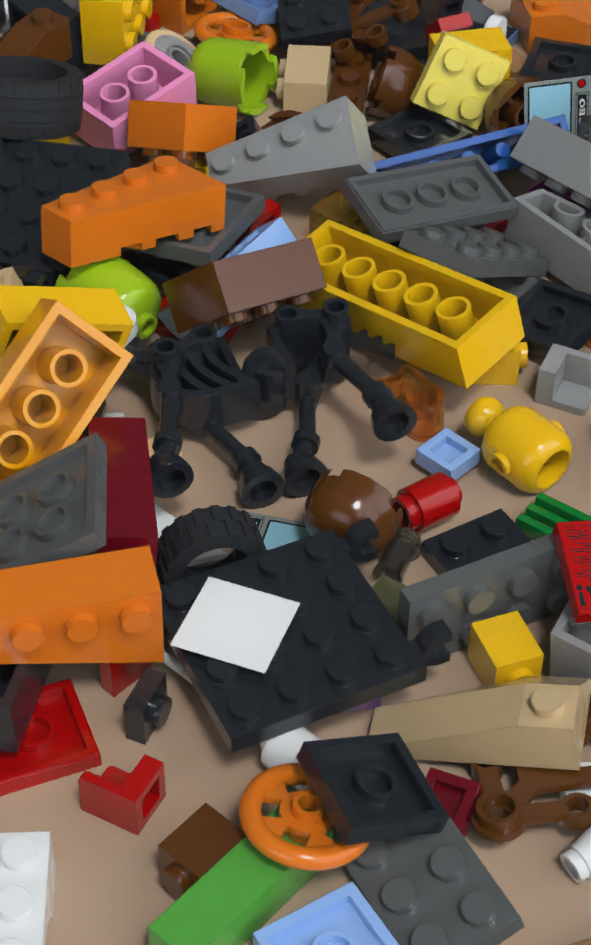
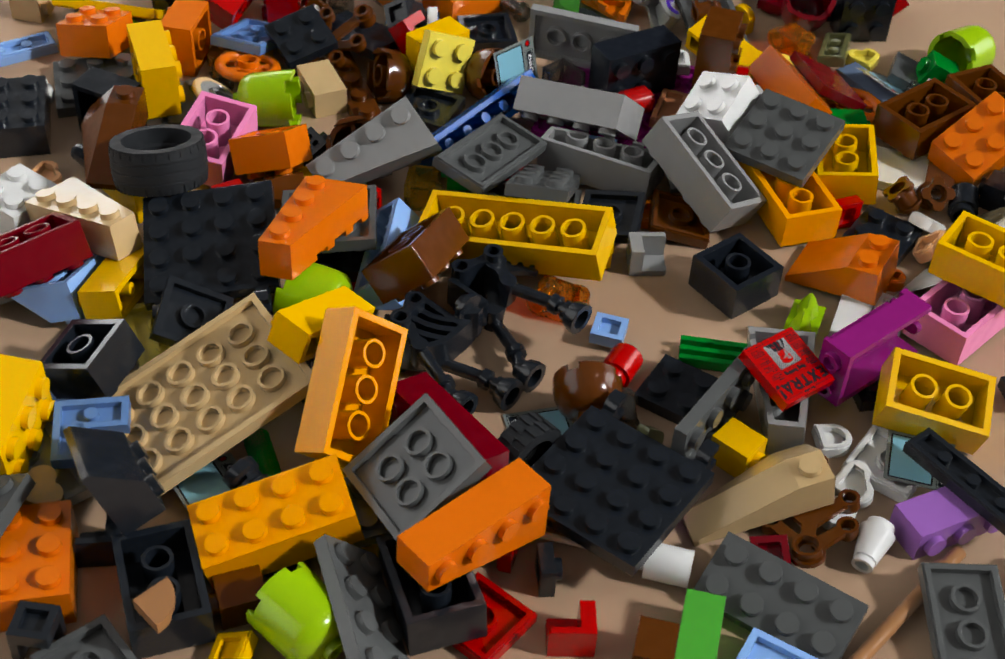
camera: 30 degrees left, 0 degrees up
(235, 624) = (585, 491): white sticker -> none
(299, 817) = (711, 597): orange plate -> none
(372, 788) = (744, 562): black plate -> none
(520, 444) = (651, 307): yellow piece -> none

